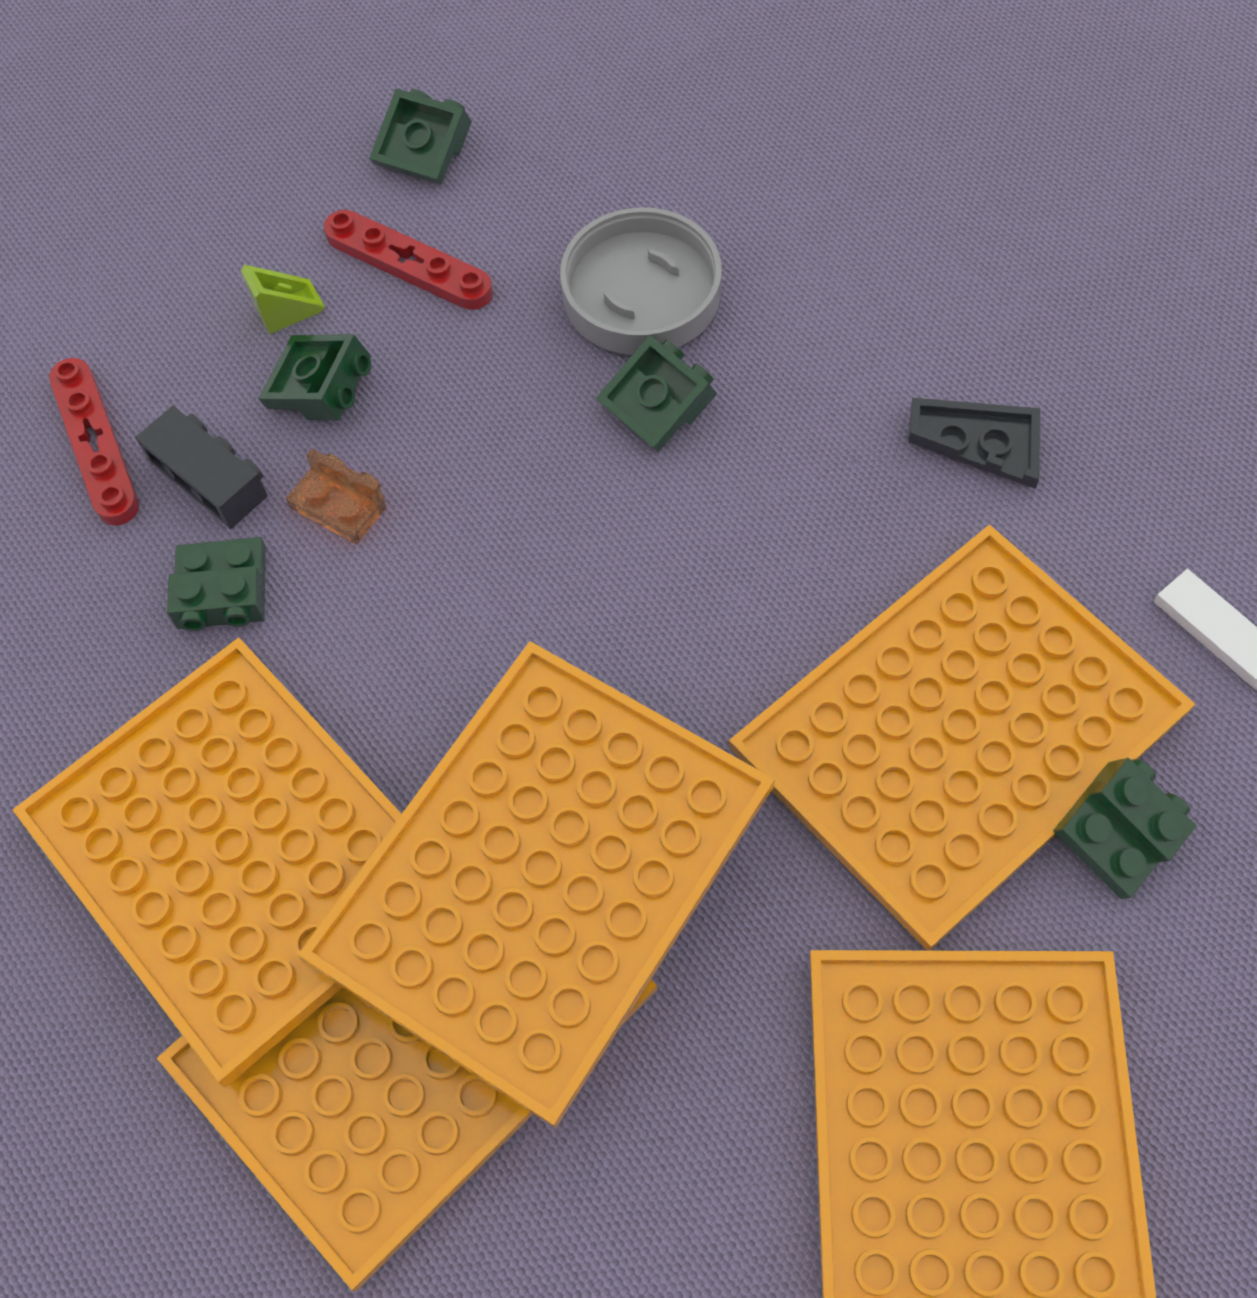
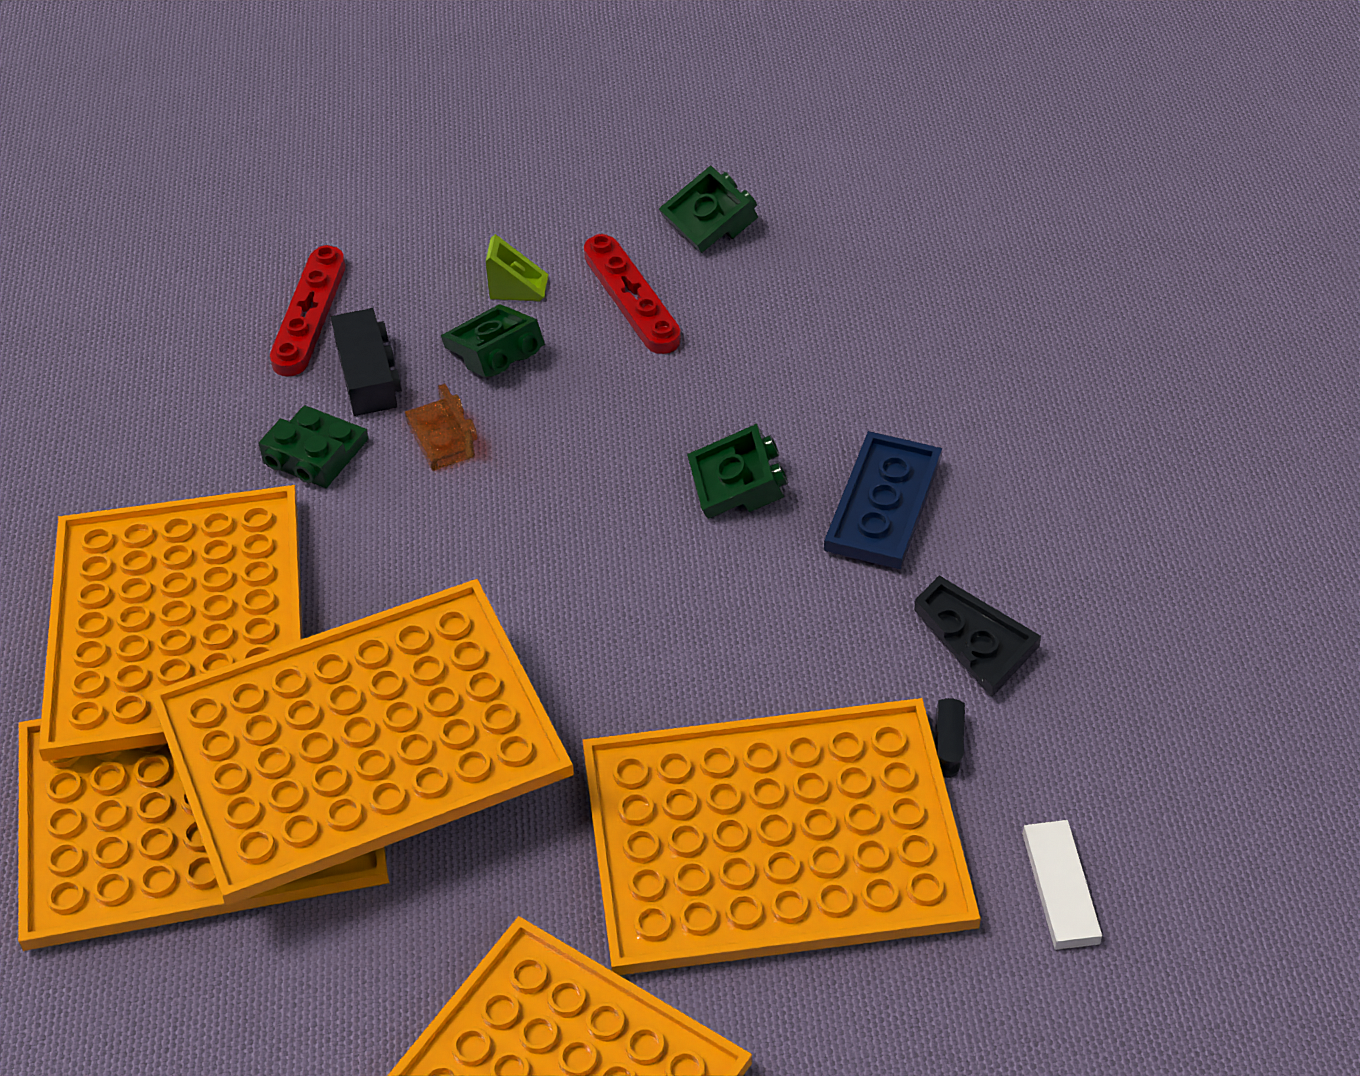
camera: 30 degrees right, 15 degrees down
(640, 278) = (795, 385): light grey piece -> none
(804, 349) = (883, 500): none -> dark blue plate
(1030, 539) = (950, 735): none -> black bar
(1125, 825) = (840, 971): dark green plate -> none

